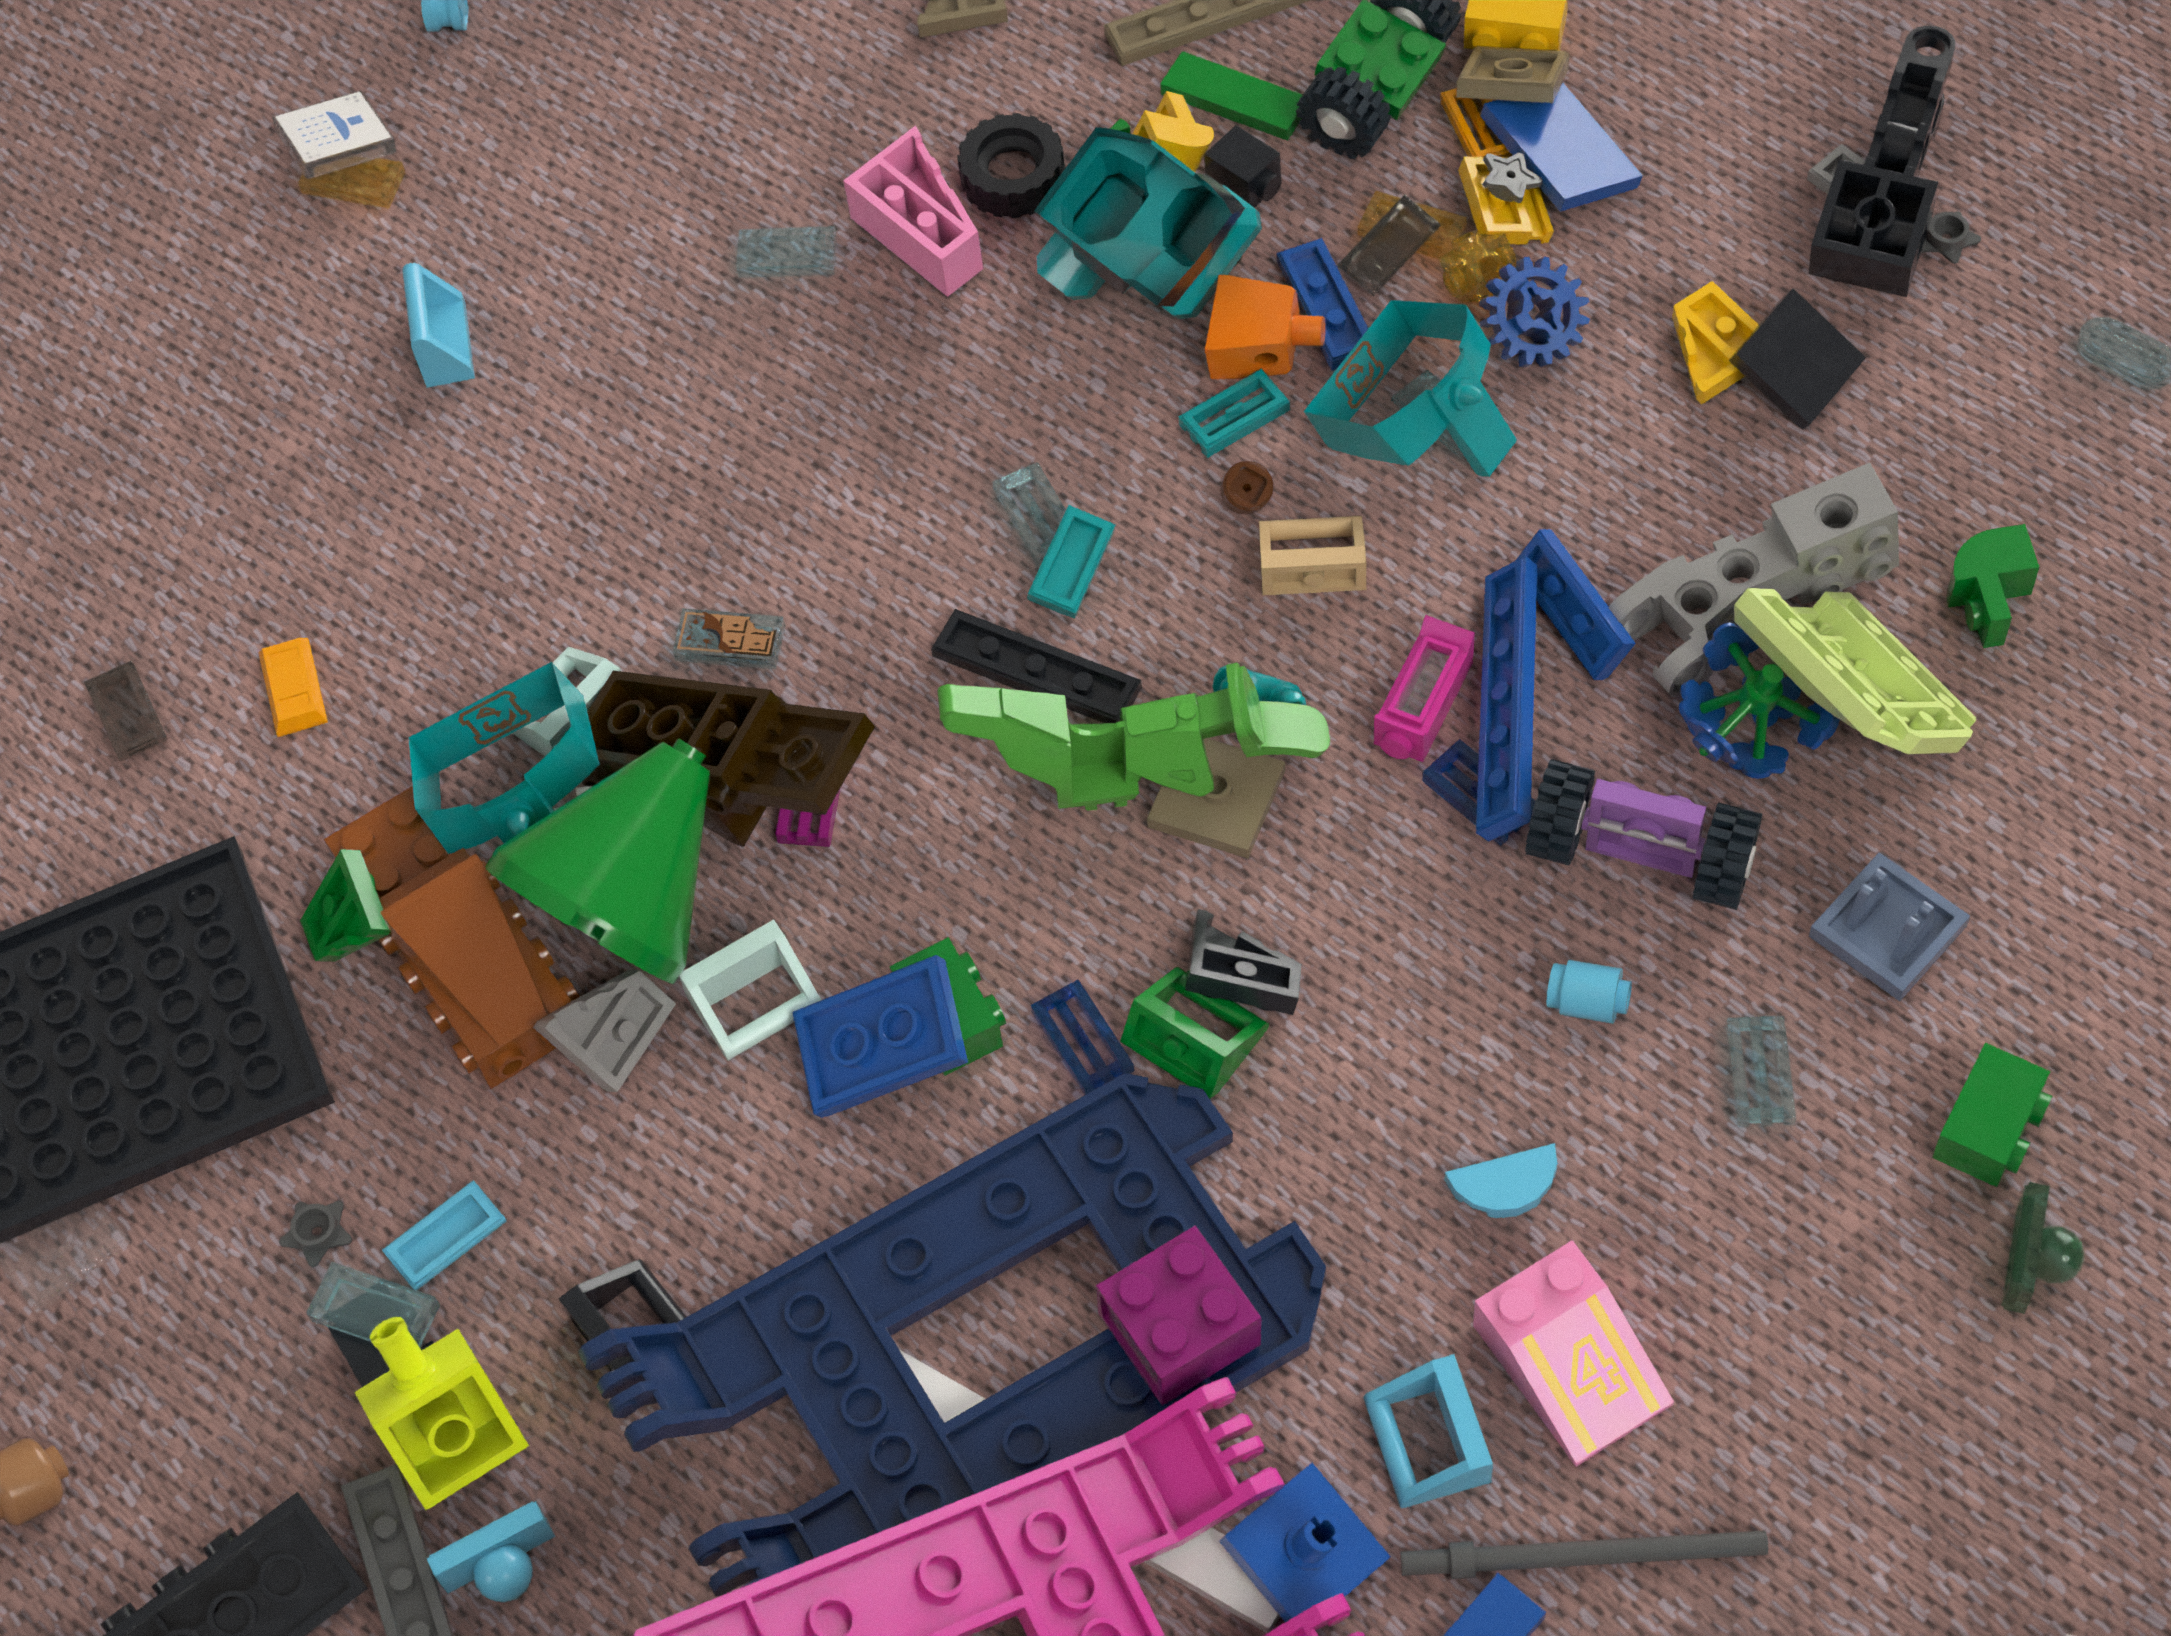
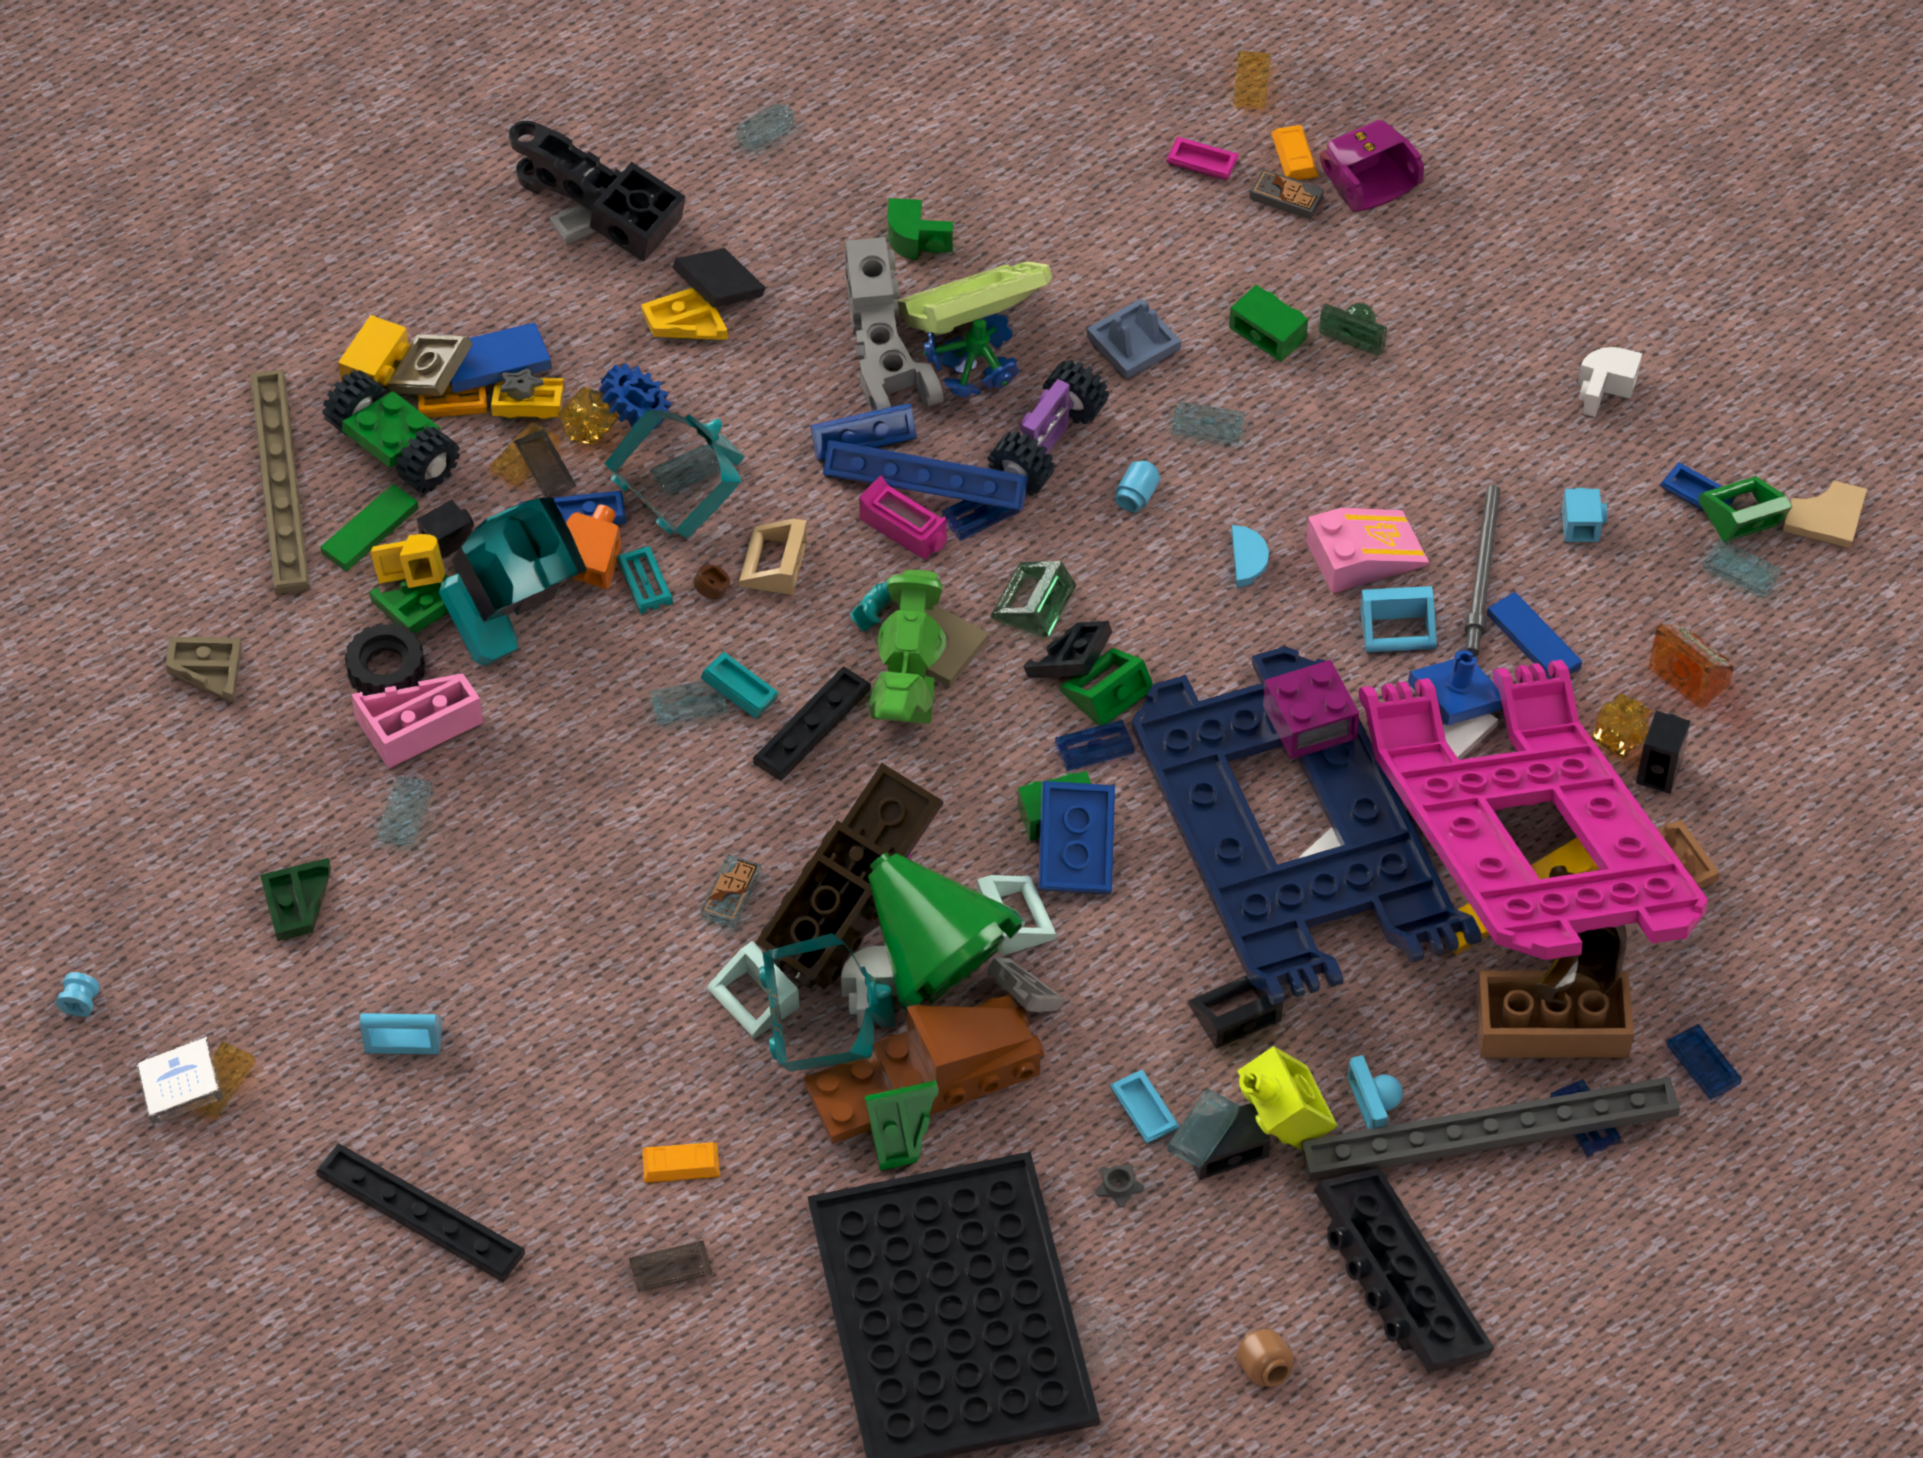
camera: 85 degrees left, 5 degrees down
(184, 428) = (420, 1212): none -> black tile
(624, 175) = (296, 897): none -> dark green wing
(1332, 911) = (1046, 601): none -> clear green tile

